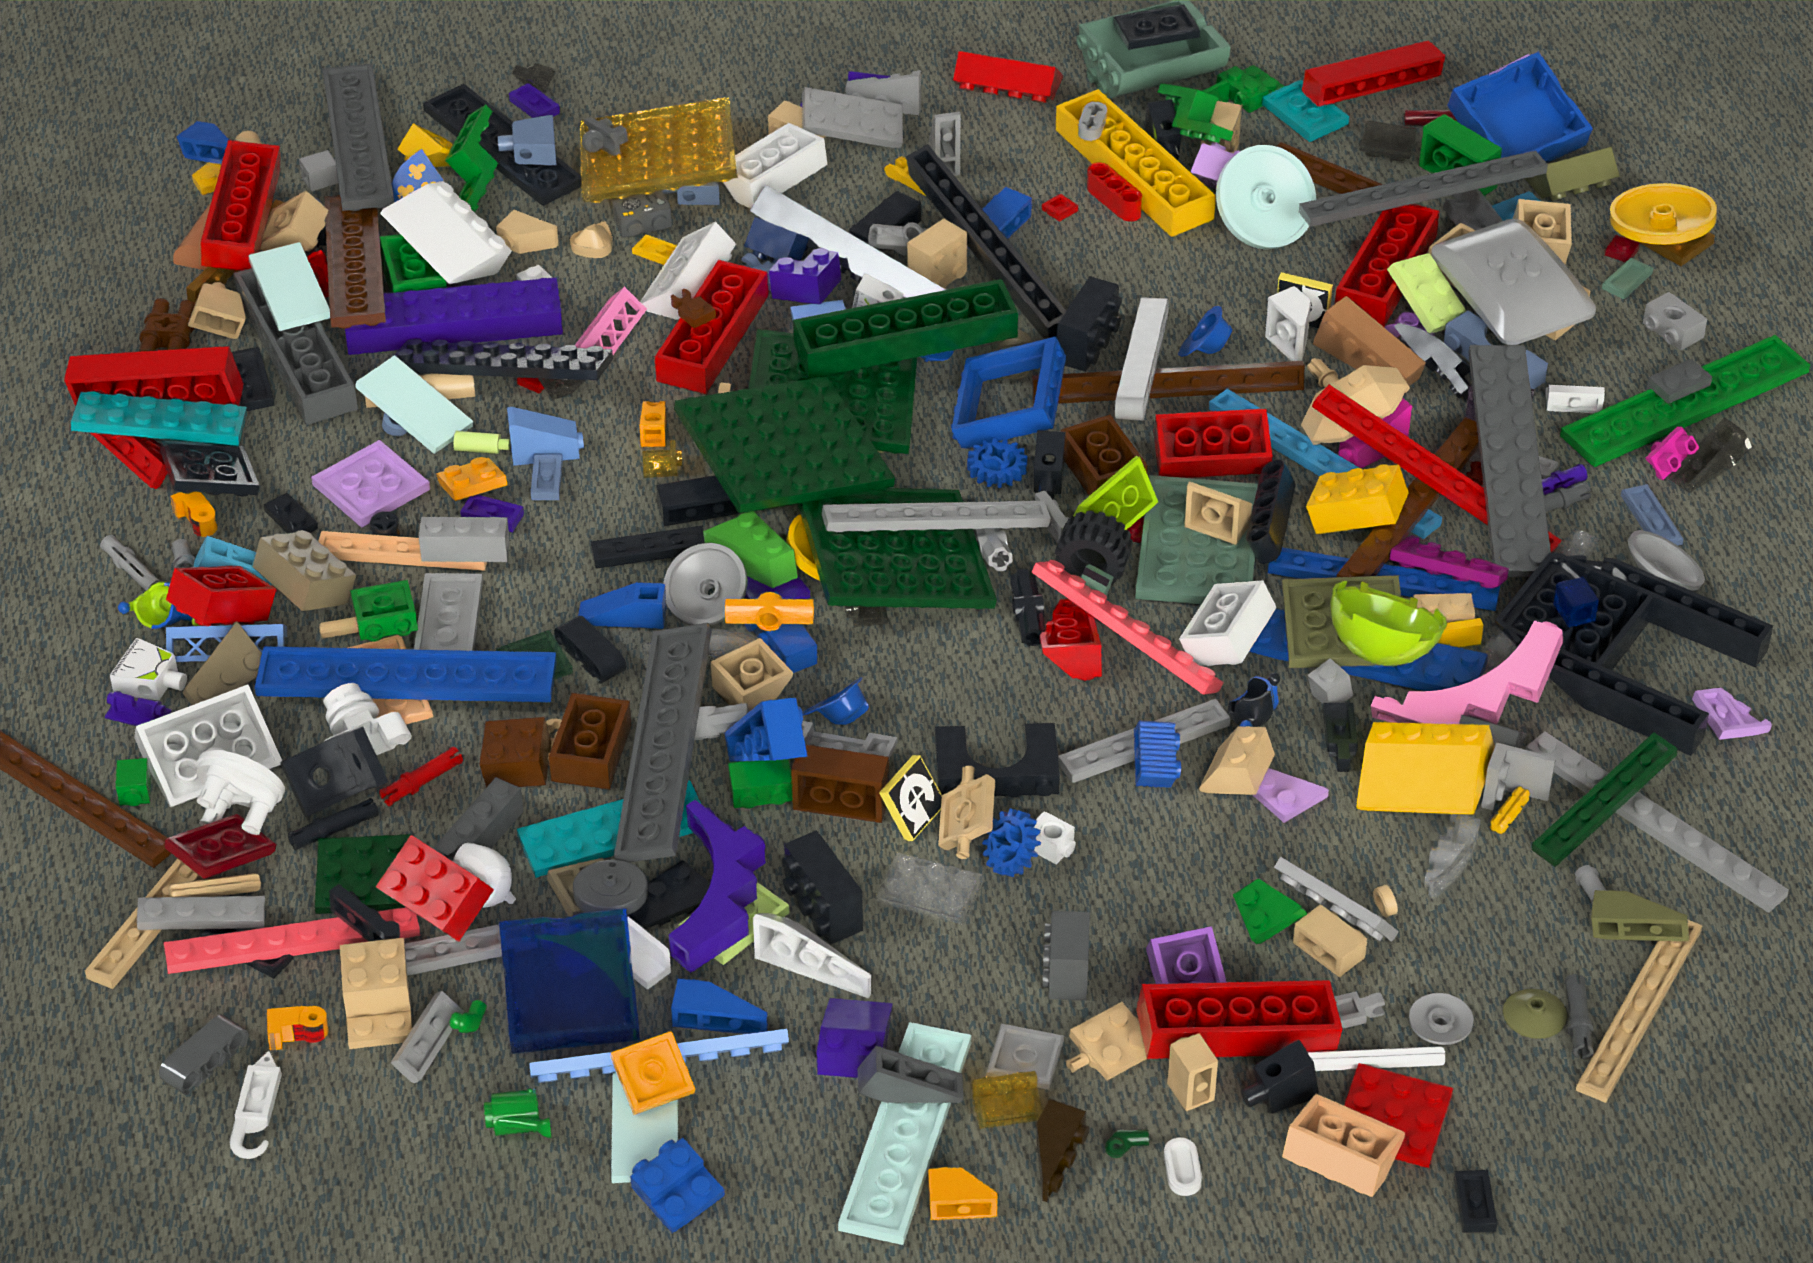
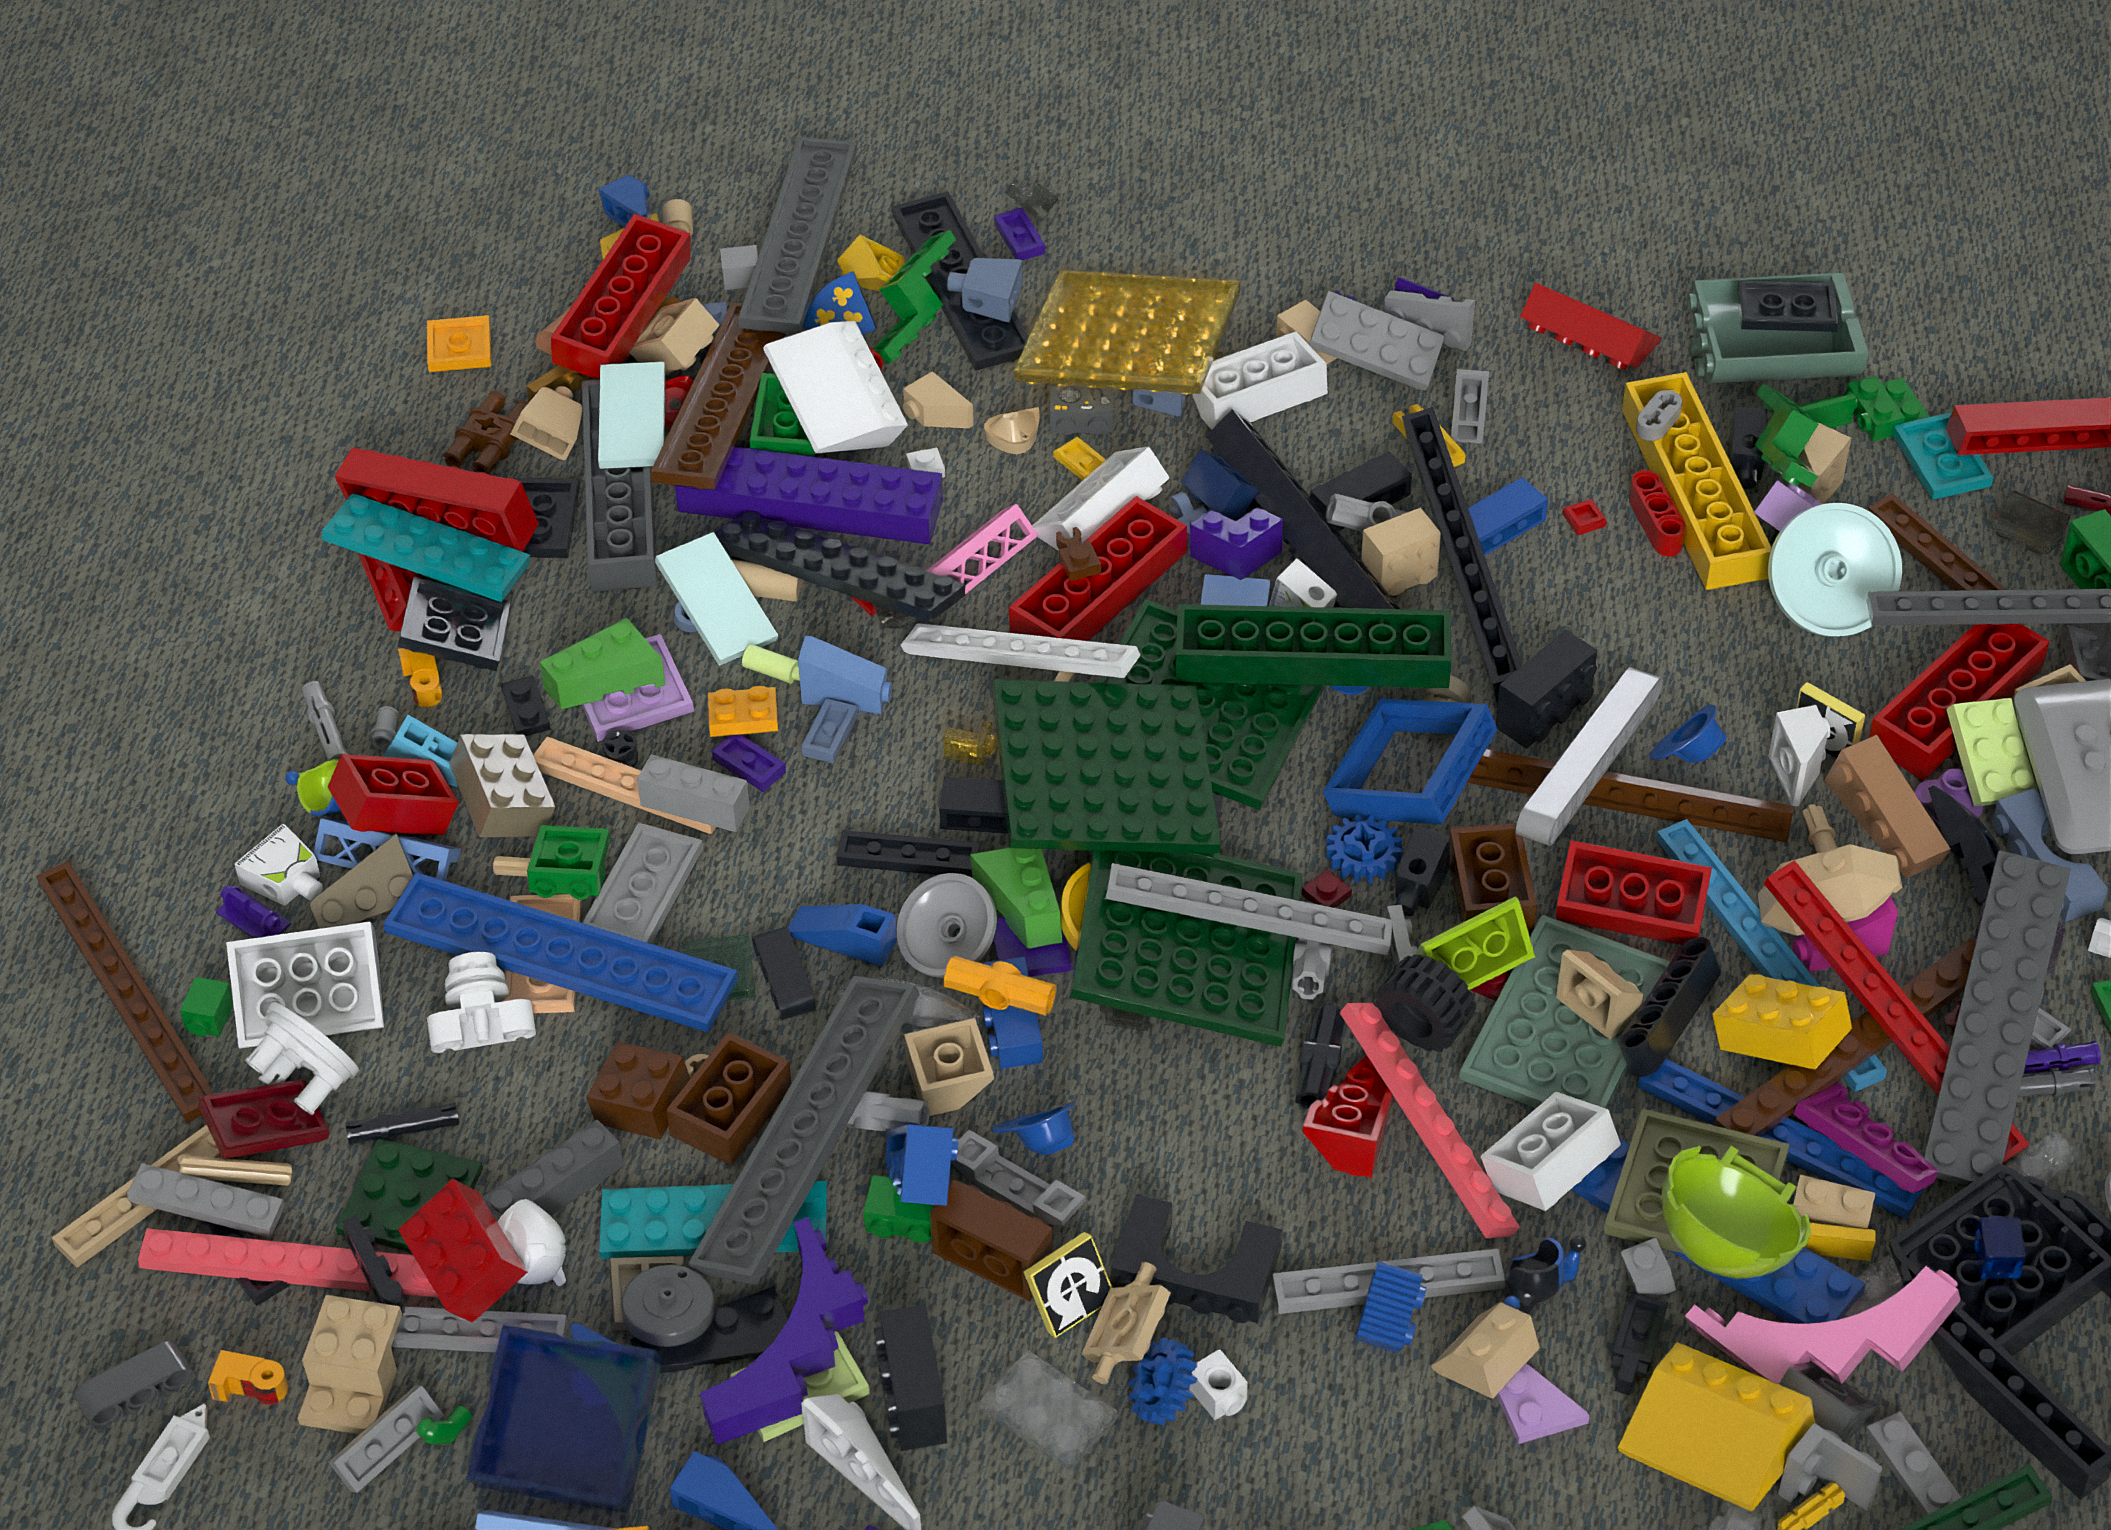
camera: 20 degrees right, 5 degrees up
(109, 272) = (459, 343): none -> light orange plate
(348, 467) = (602, 665): none -> bright green wedge
(349, 767) = (438, 1054): black bracket -> none
(411, 781) = (525, 1088): red pin -> none
(604, 136) = (1069, 300): dark grey hips -> none
(648, 956) = (673, 1406): white panel -> none
(653, 424) = (975, 694): light orange leg -> none
(678, 382) = (1021, 650): none -> white tile
(981, 494) = (1326, 890): none -> dark red plate
(1097, 579) = (1416, 1044): sand green tile -> none

